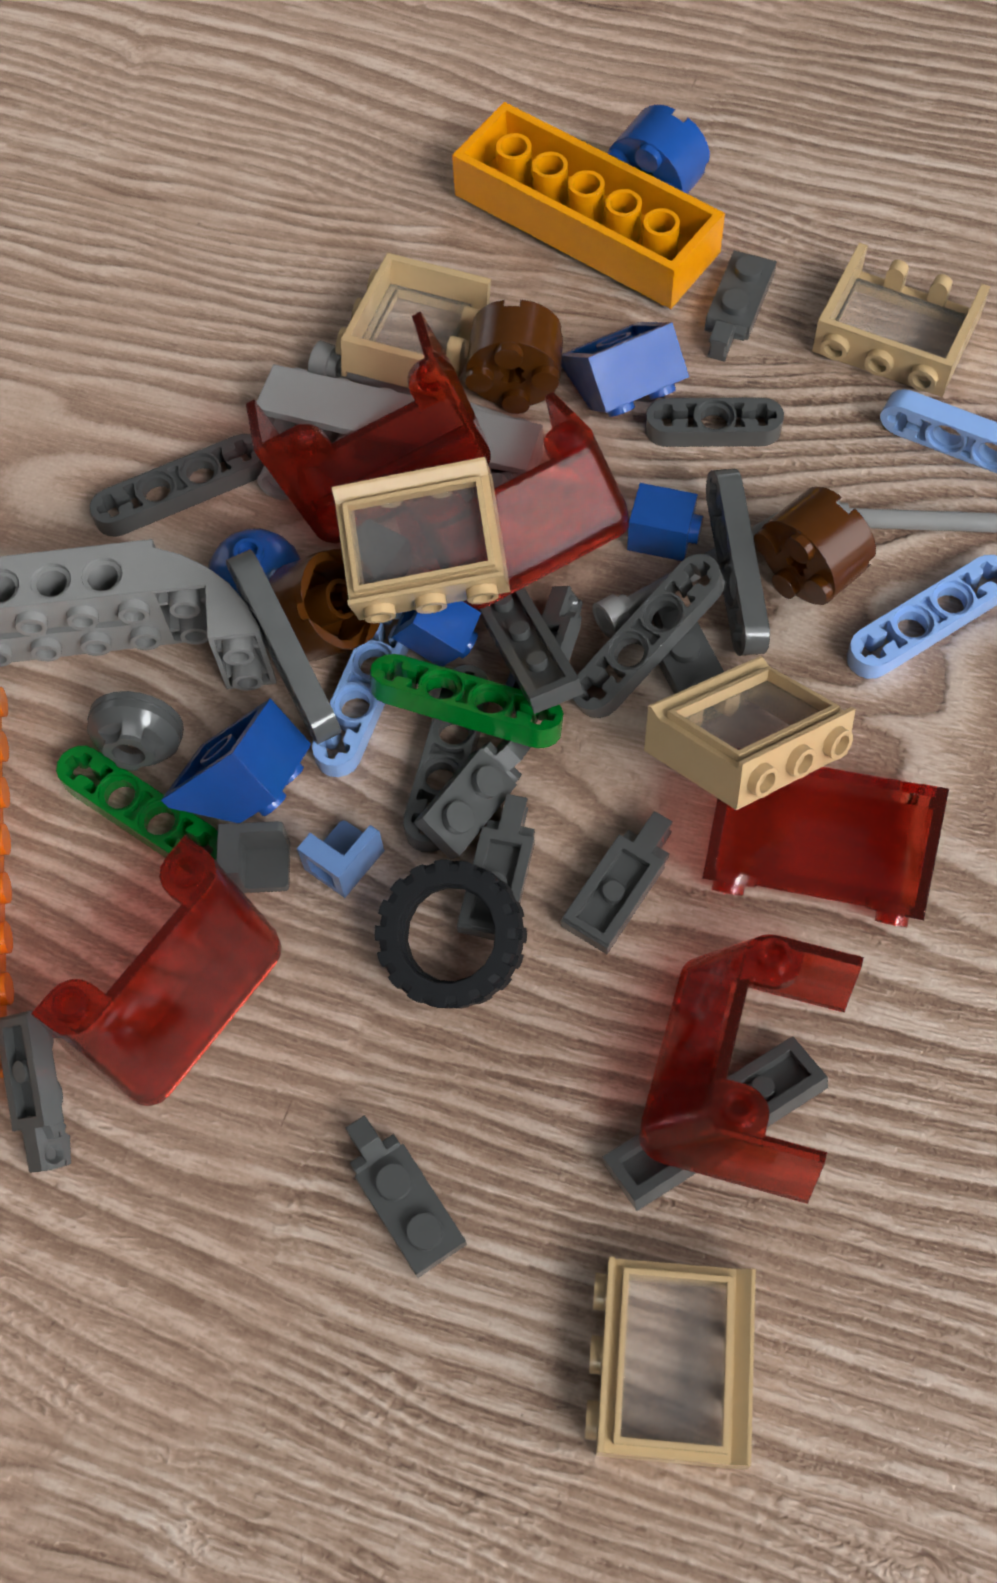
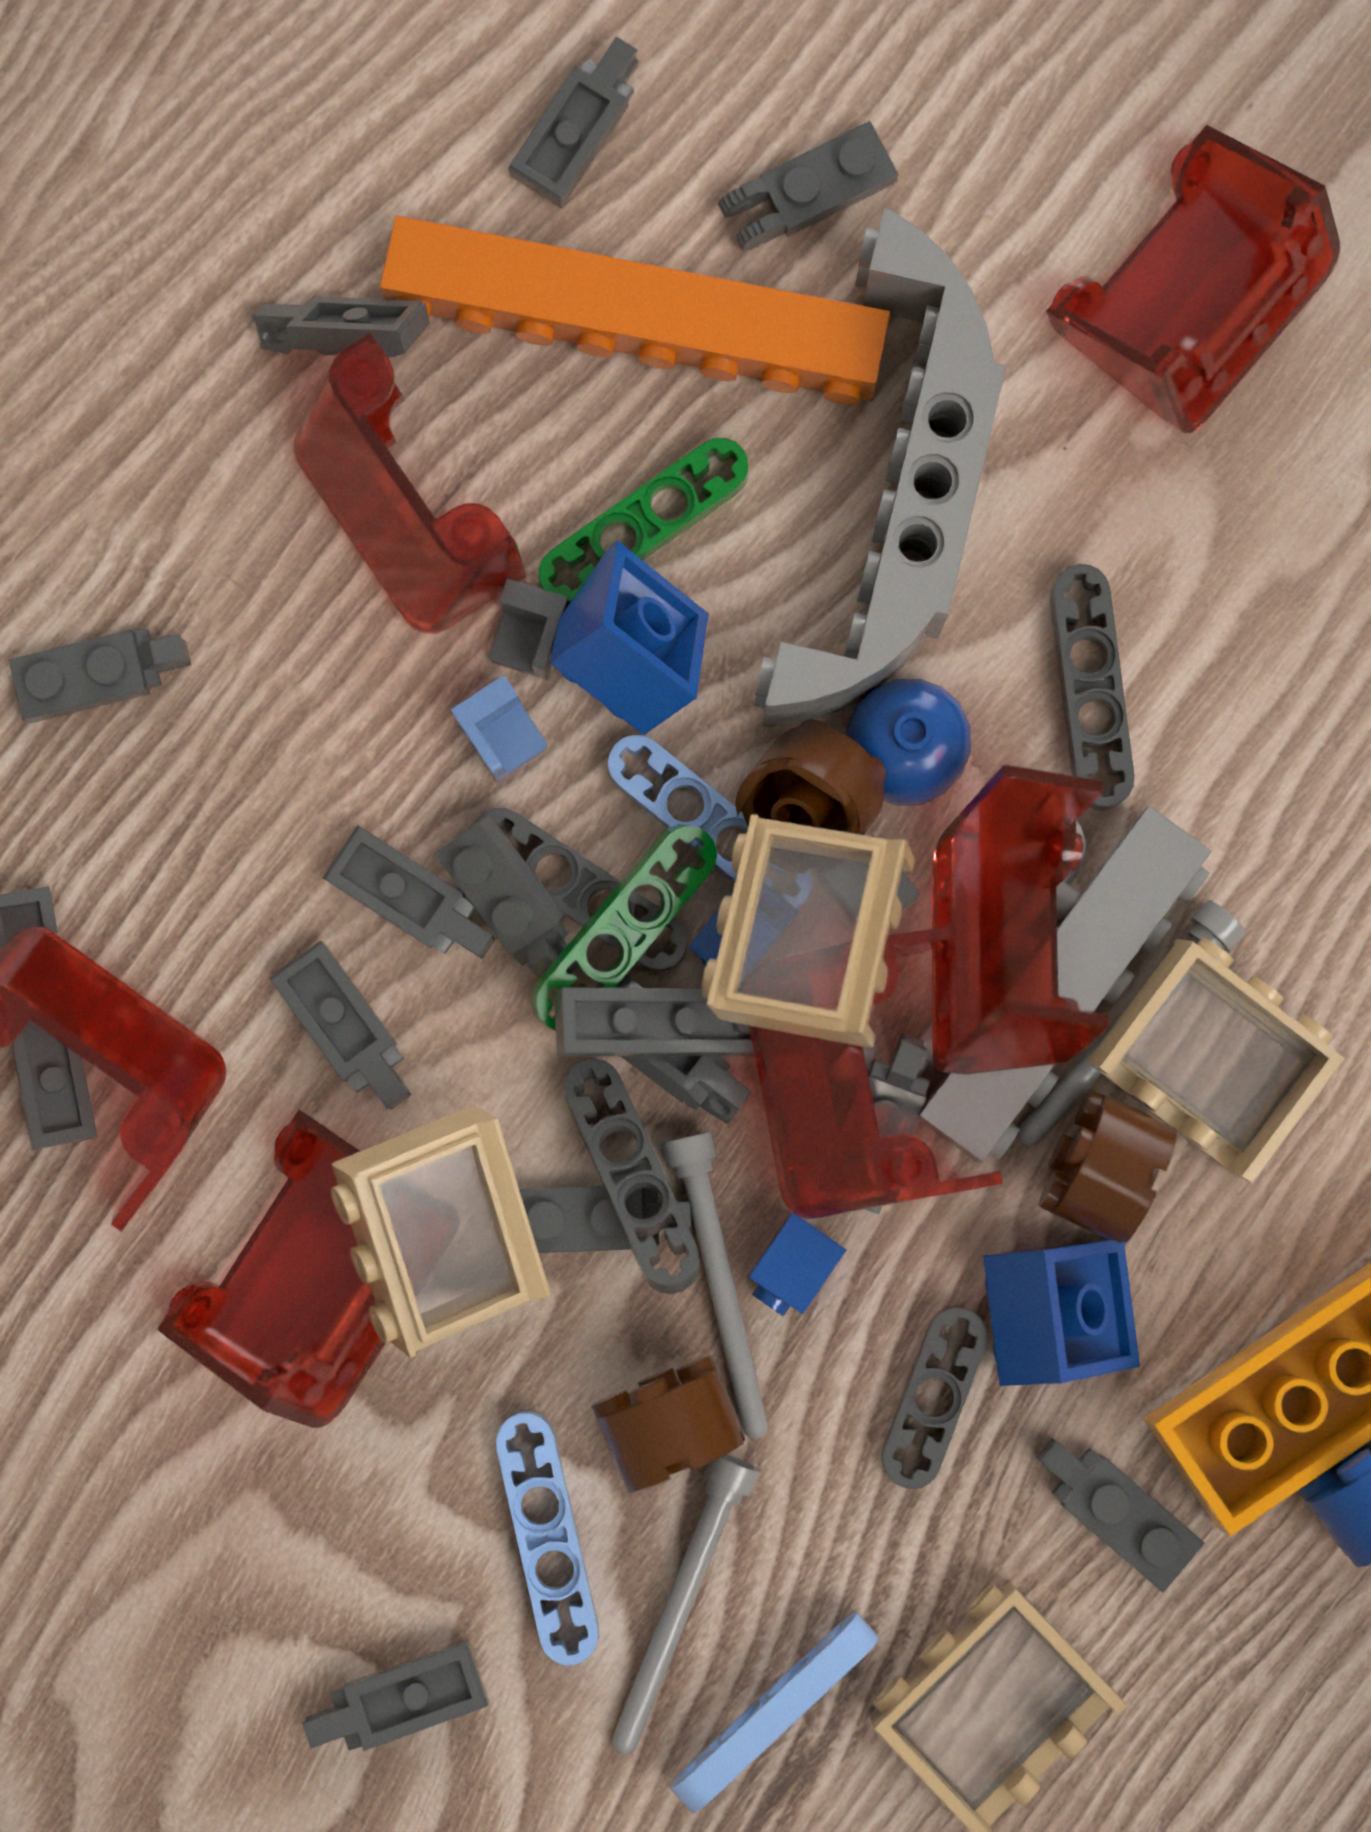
camera: 110 degrees right, 20 degrees up
(137, 721) = (722, 532): dark grey piece -> none
(284, 646) = (749, 729): dark grey beam -> none
(395, 926) = (307, 768): black tyre -> none
(737, 562) = (694, 1325): dark grey beam -> none

